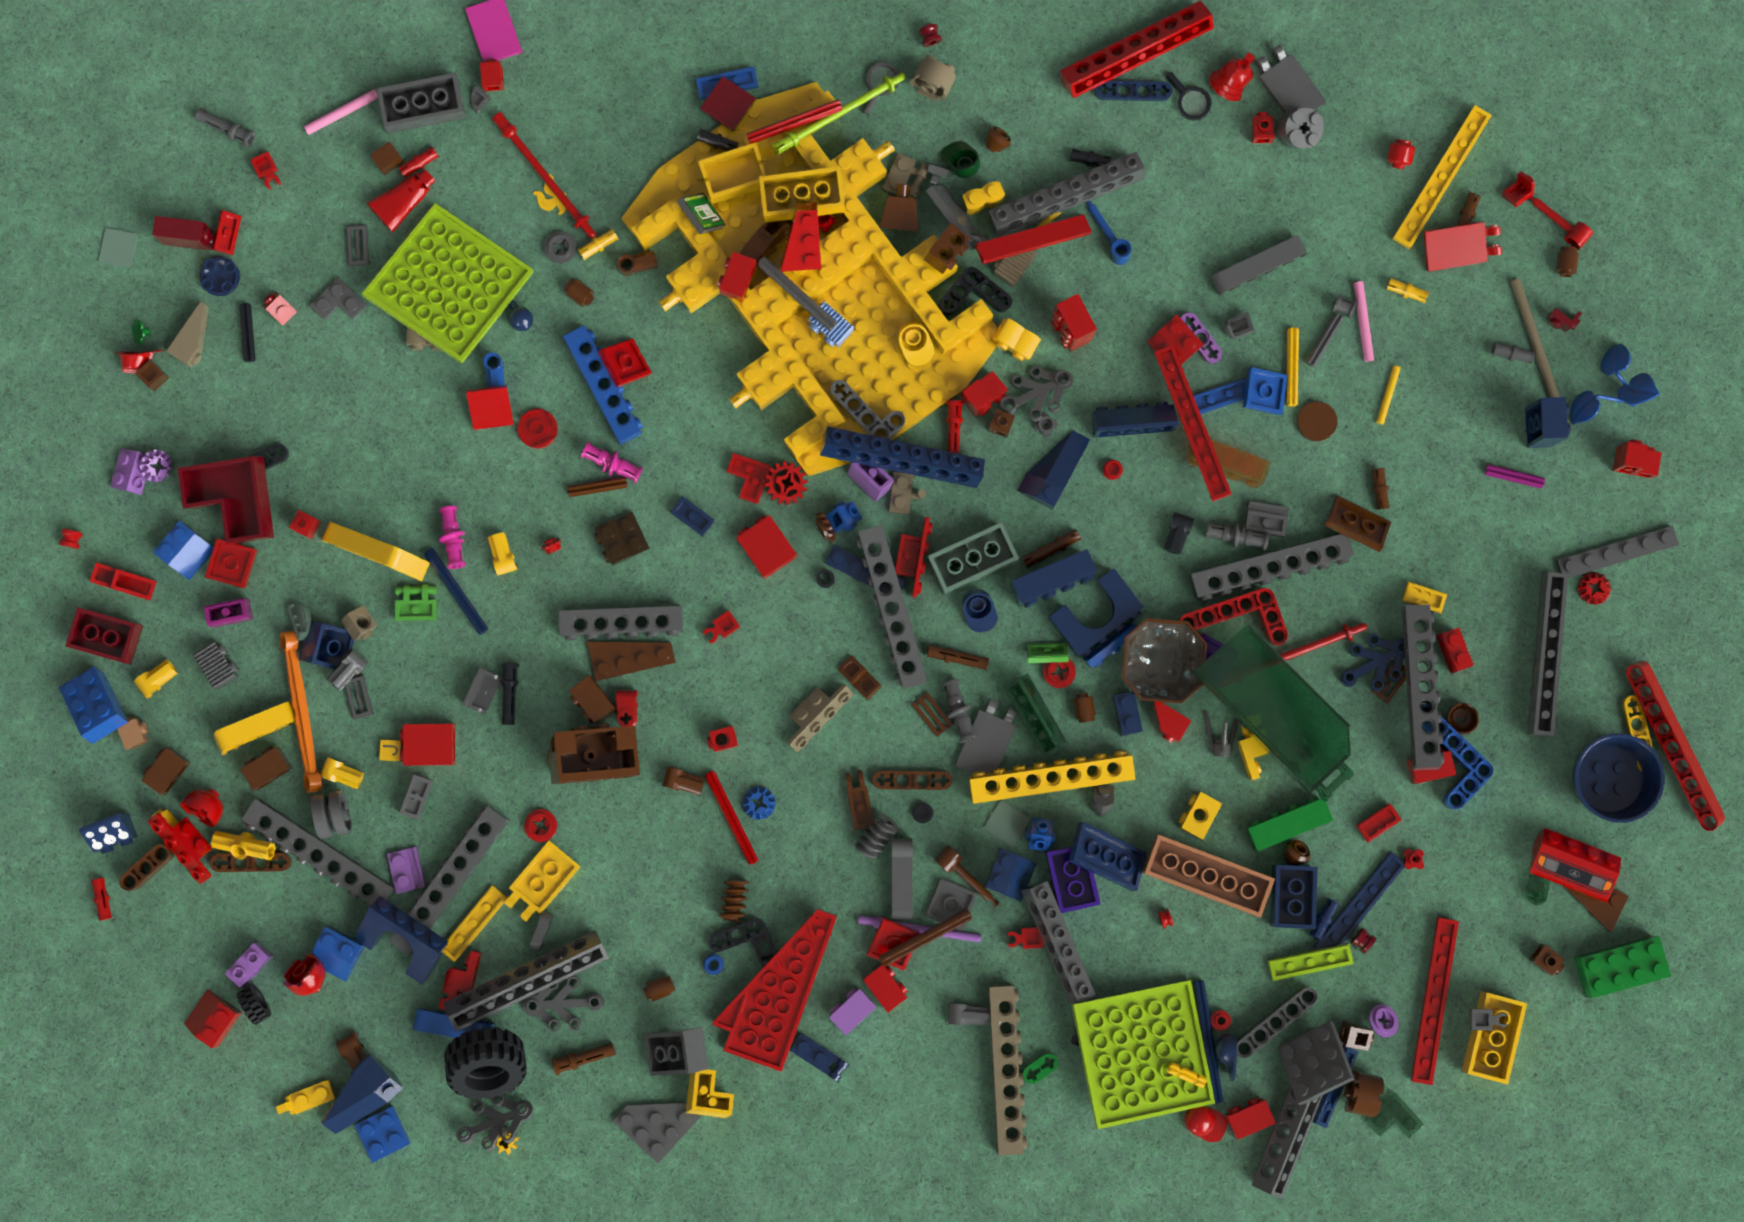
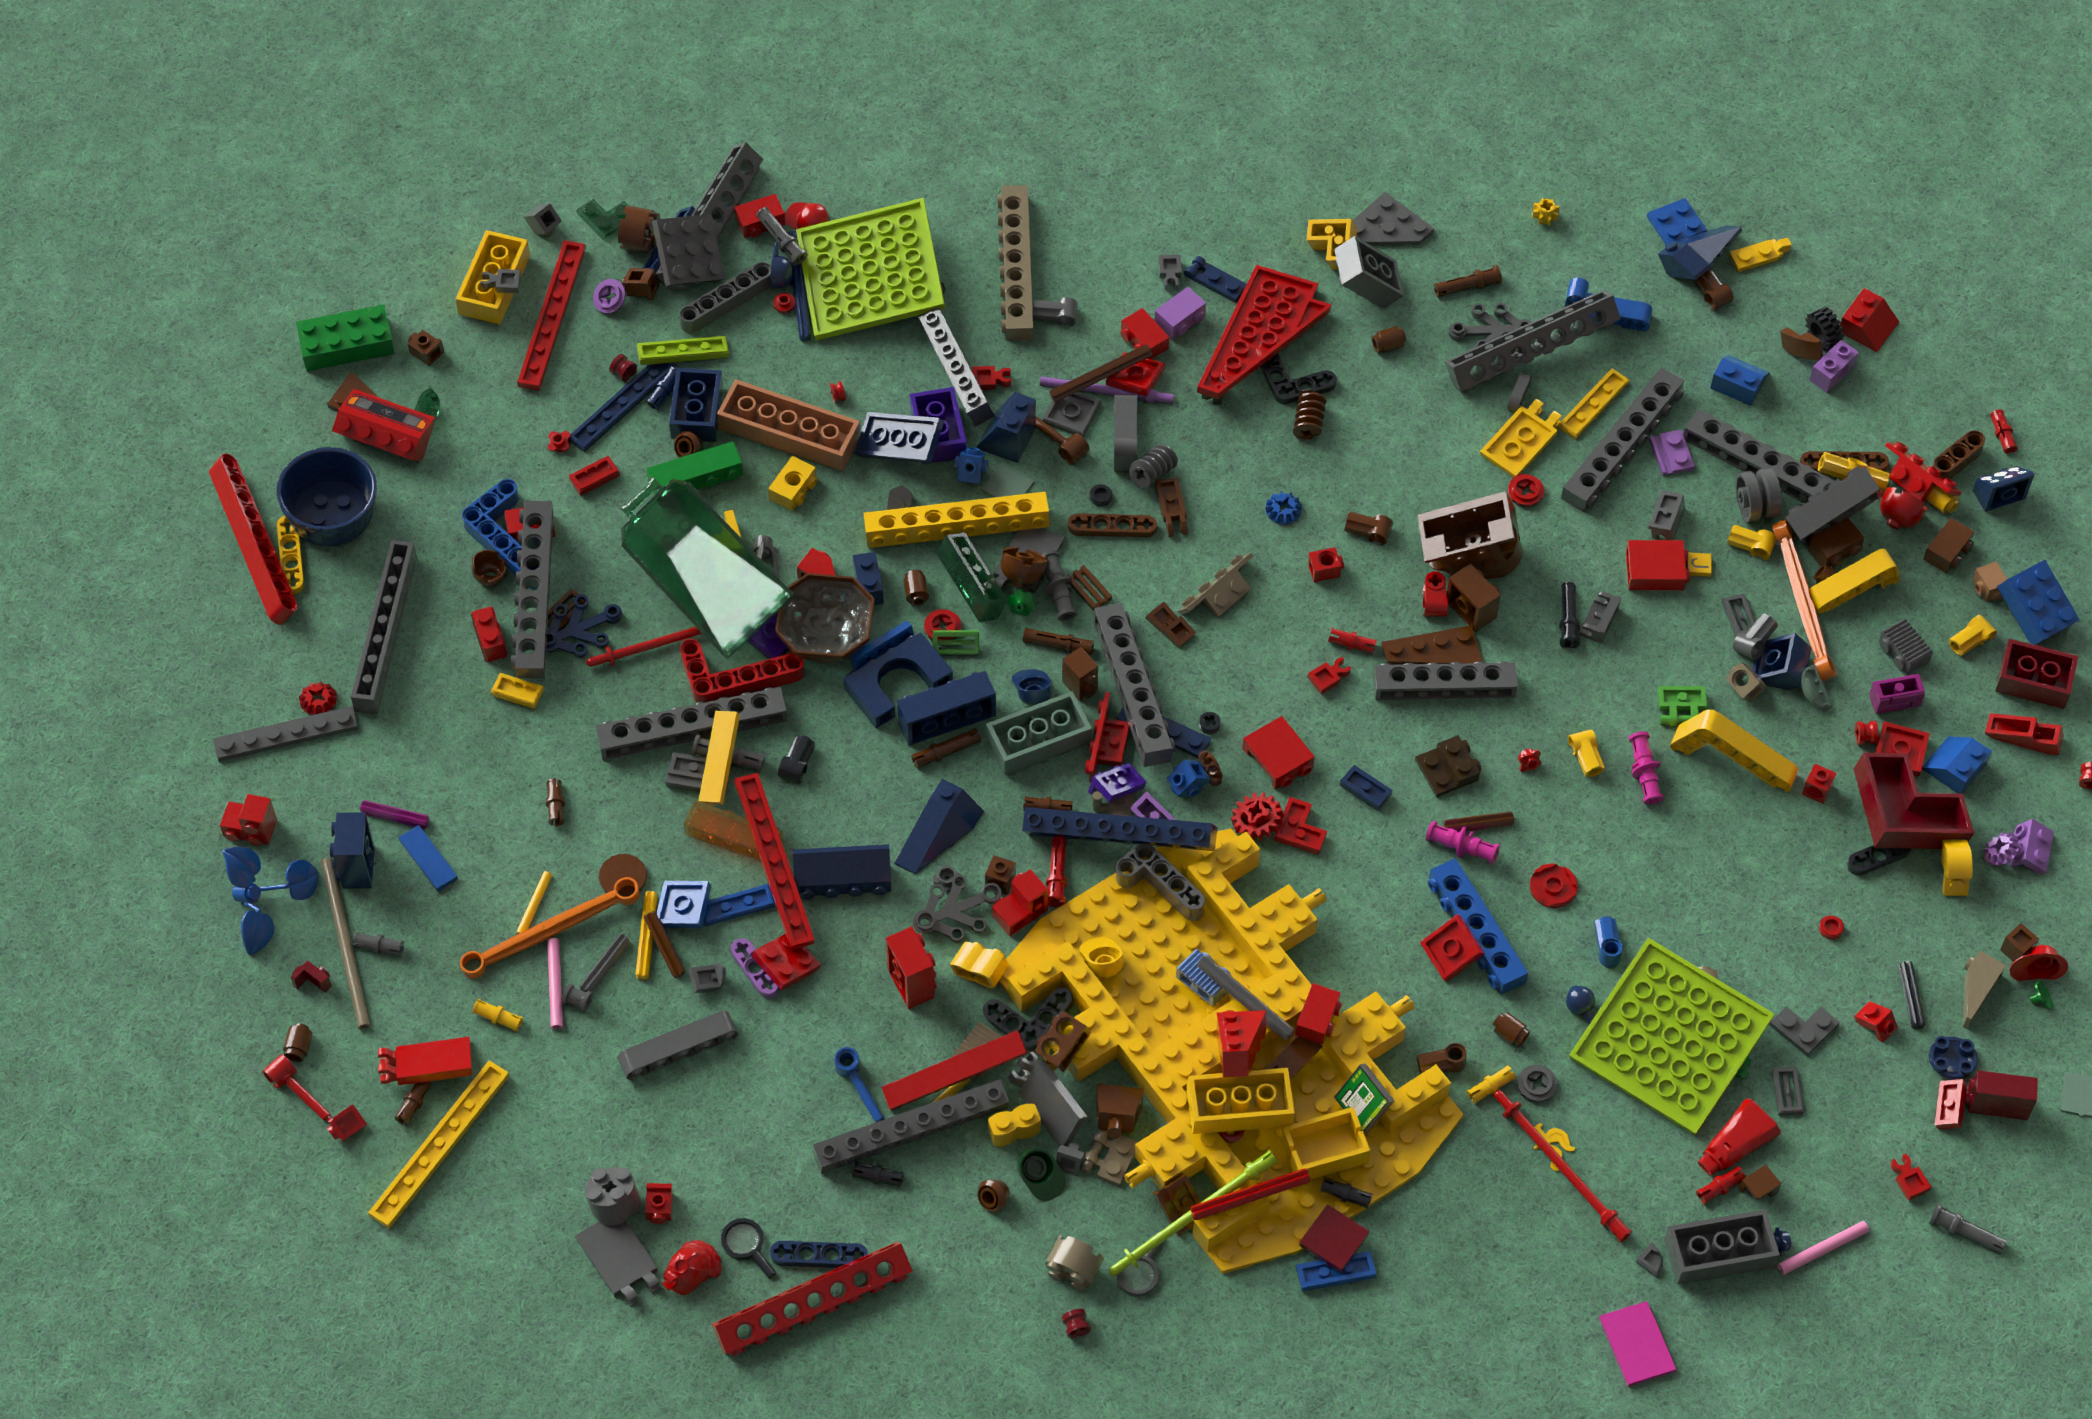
camera: 175 degrees left, 25 degrees down
(195, 444) = (1957, 866): none -> yellow brick
(259, 577) = (1866, 732): none -> red wheel
(263, 793) = (1834, 505): none -> dark grey brick
(274, 982) = (1803, 346): none -> reddish brown slope
(280, 737) = (1823, 573): none -> reddish brown plate
(305, 976) = (1773, 352): red cylinder -> none
(307, 394) = (1831, 927): none -> red tile
(374, 113) = (1782, 1240): none -> dark blue plate
(425, 943) = (1693, 394): dark blue arch -> none
(456, 591) = (1637, 717): dark blue axle -> none
(460, 980) = (1605, 348): red plate -> none
(485, 1063) = (1571, 261): black tyre -> none
(490, 407) = (1611, 902): red tile -> none
(492, 75) = (1635, 1282): red brick -> none
(497, 1122) = (1555, 227): dark grey plant -> none
(701, 663) = (1352, 640): none -> red pin
(706, 964) = (1331, 356): blue plate -> none
(731, 817) = (1314, 494): red axle -> none
(849, 130) = (1176, 1199): none -> reddish brown plate
(862, 1068) = (1170, 269): none -> dark grey plate
(904, 507) = (1117, 782): none -> dark purple bracket
(938, 613) = (1080, 674): none -> reddish brown brick
(963, 493) = (1047, 803): none -> reddish brown pin
(991, 693) = (1024, 599): none -> green plant
(991, 722) = (1022, 567): none -> reddish brown cylinder
(1043, 1072) = (980, 265): green beam -> none
(1112, 469) = (870, 829): red plate -> none
(1186, 1074) = (825, 248): yellow axle -> none
(1223, 1079) = (787, 243): none -> dark grey pin
(1245, 522) = (719, 757): none -> yellow tile
(1277, 354) = (664, 944): none -> reddish brown axle
(1358, 523) = (586, 761): reddish brown tile -> none
(1373, 368) = (550, 927): none -> orange piece
(1400, 153) = (488, 1169): red head -> none
(1455, 1107) = (542, 219): none -> dark grey brick
(1481, 435) = (428, 858): none -> blue tile

